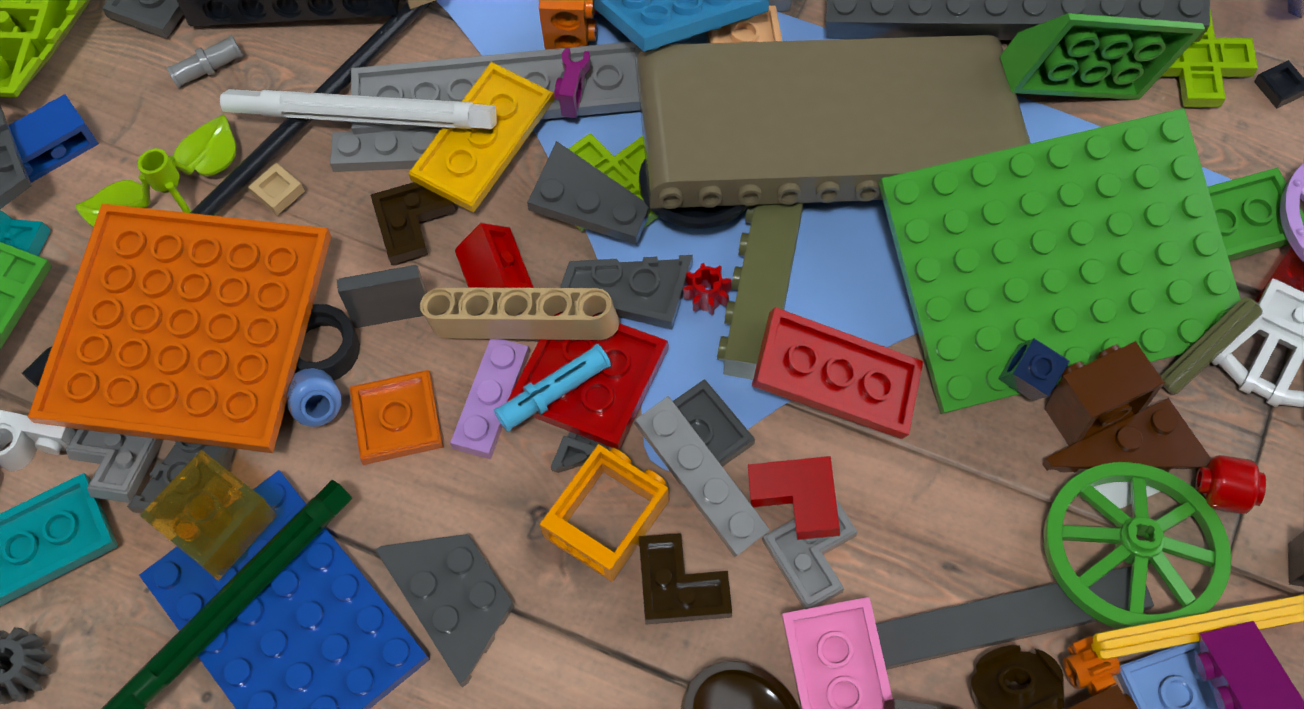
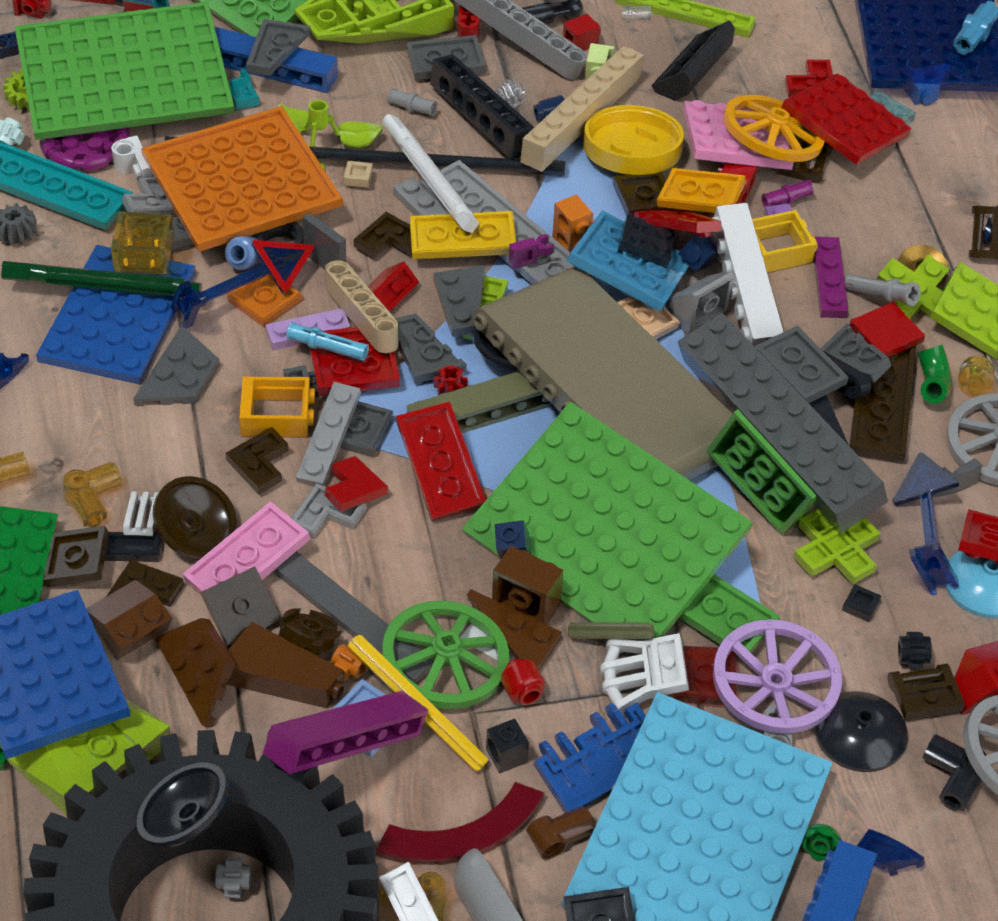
camera: 50 degrees right, 15 degrees down
(370, 363) = (279, 260): none -> clear blue piece

